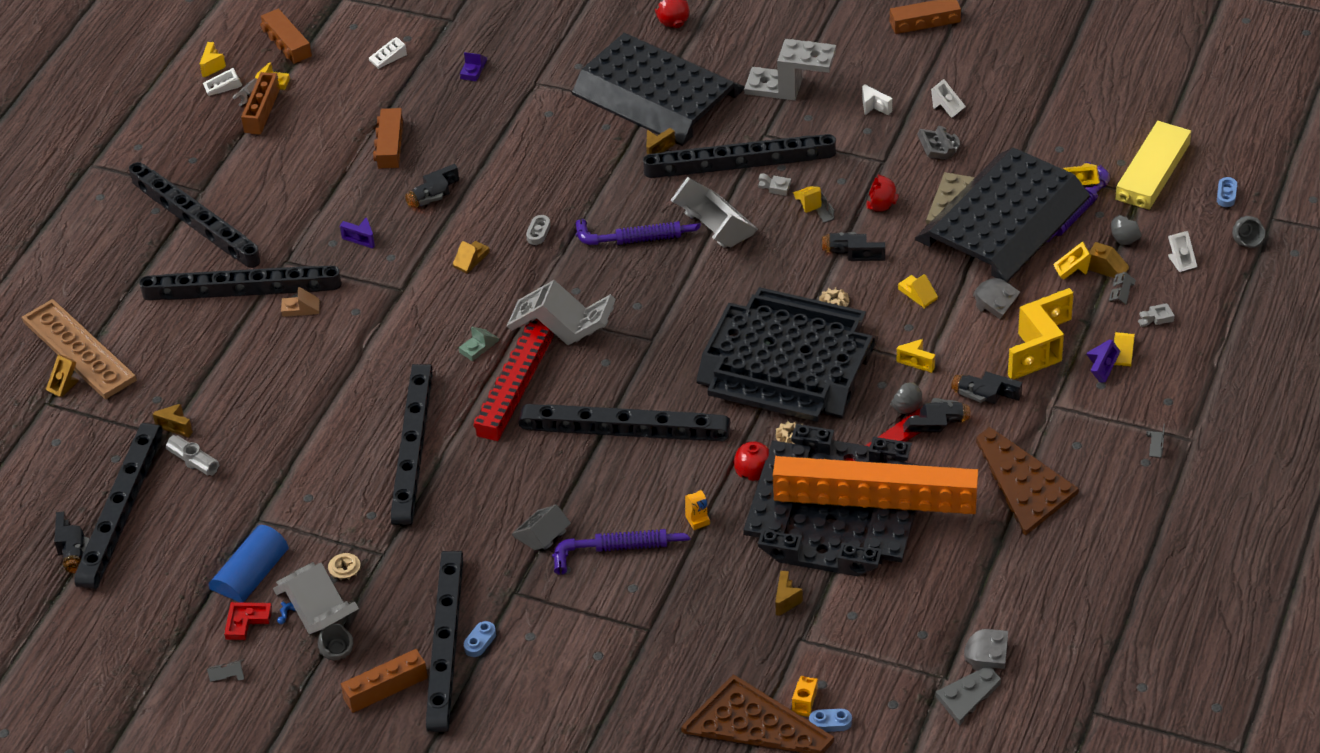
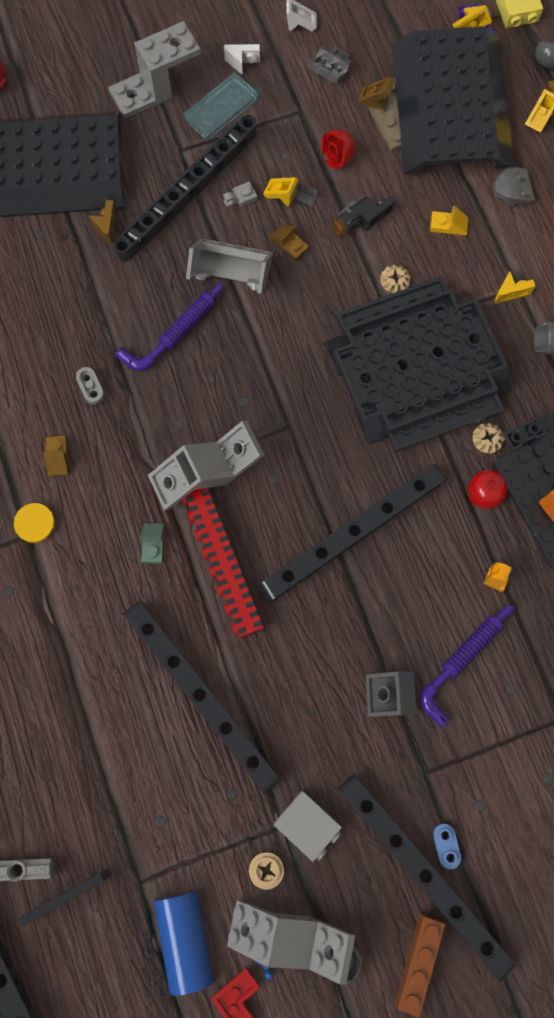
camera: 45 degrees left, 30 degrees up
(205, 482) = (64, 897): none -> black tile
(399, 558) = (308, 826): none -> light grey brick
(413, 283) = (34, 523): none -> yellow tile
(779, 232) = (289, 242): none -> pearl gold slope
(820, 122) = (220, 106): none -> clear light blue tile
(947, 177) = (377, 93): none -> pearl gold slope

